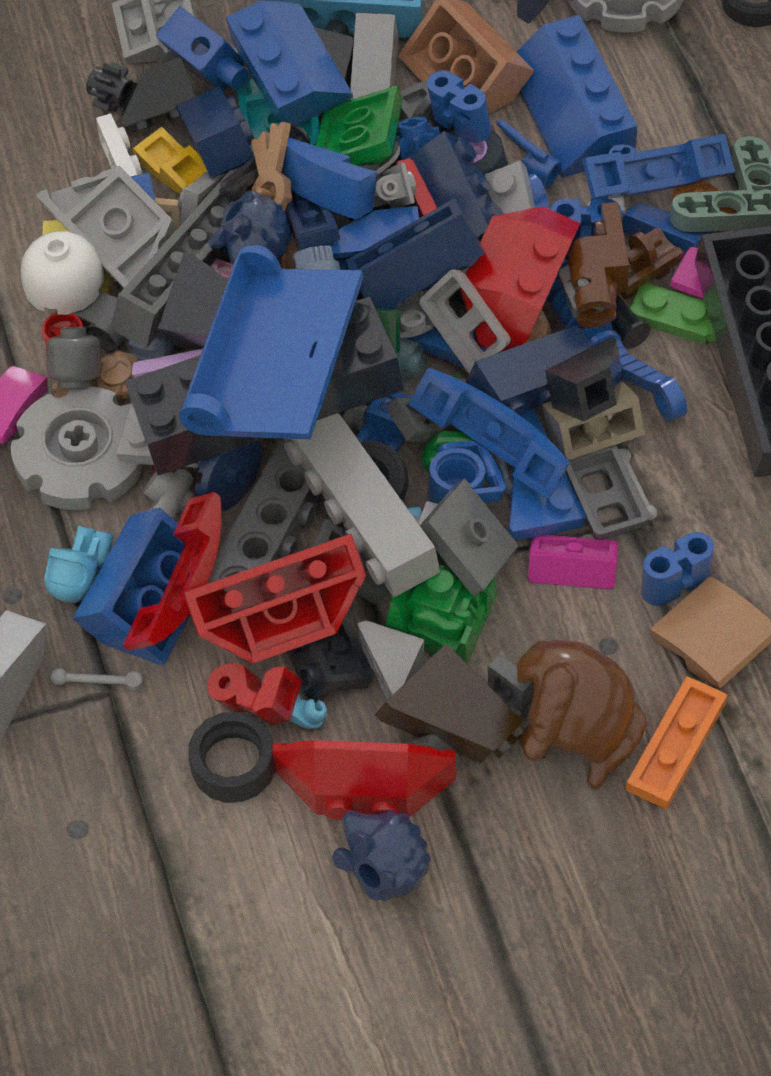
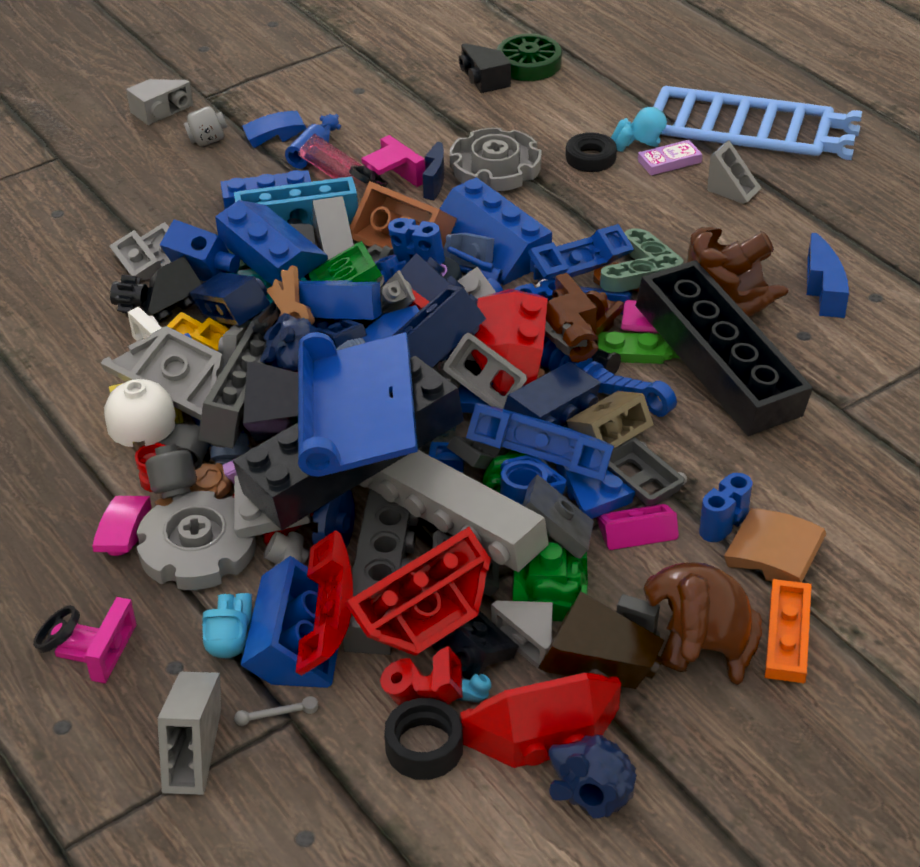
camera: 20 degrees left, 15 degrees down
(533, 120) = (474, 245): none -> sand blue bracket
(586, 381) = (598, 391): black slope -> none

